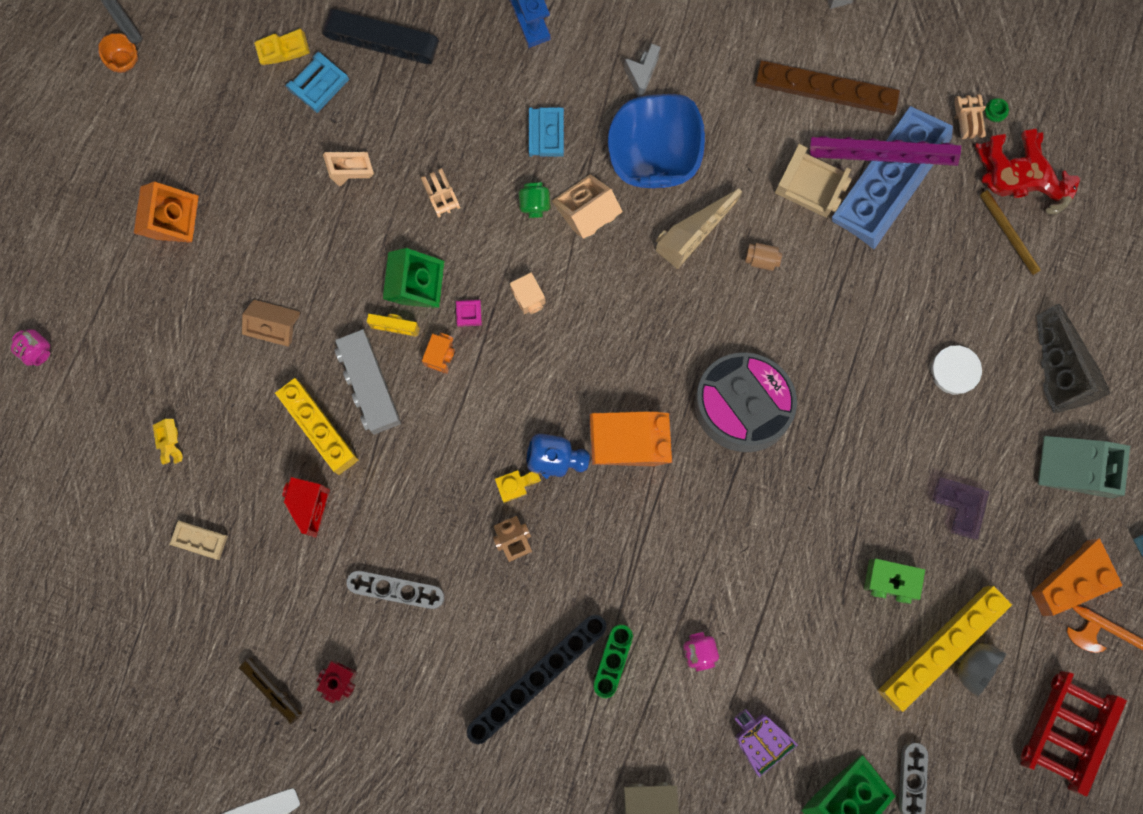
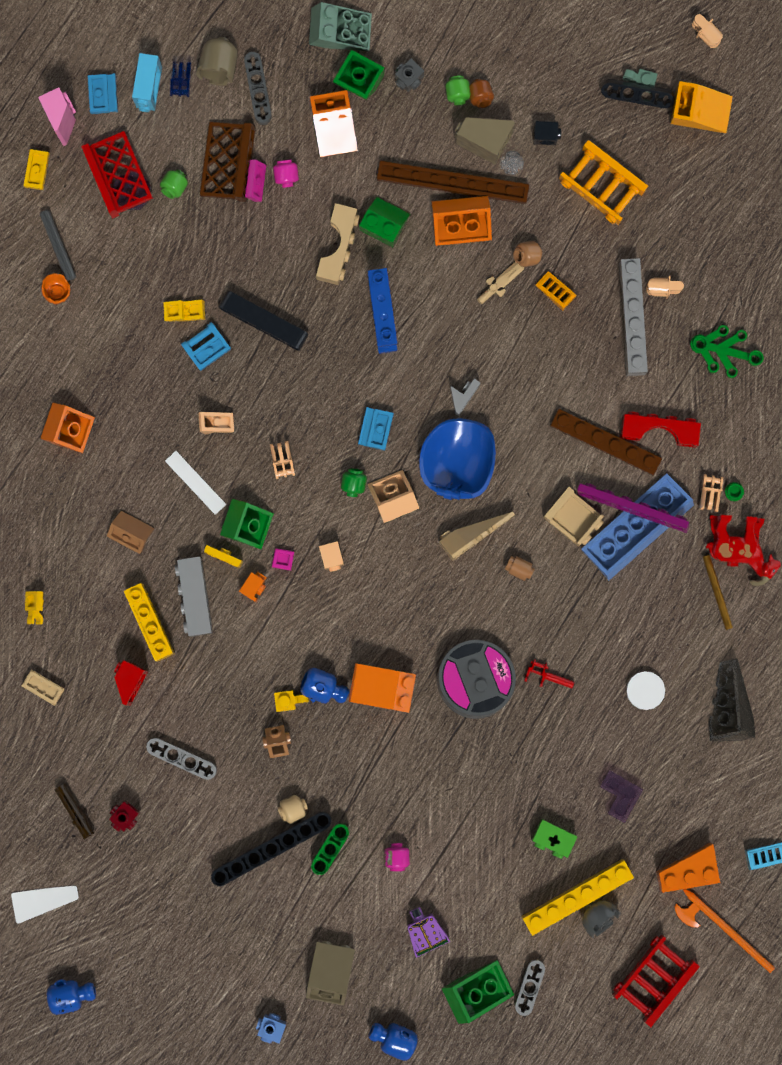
camera: 15 degrees right, 5 degrees up
(339, 246) = (195, 482): none -> white sticker
(552, 621) = (292, 809): none -> tan head
(831, 380) = (548, 676): none -> red piece
(917, 54) = (684, 432): none -> red arch
(1084, 466) = (719, 787): sand green slope -> none

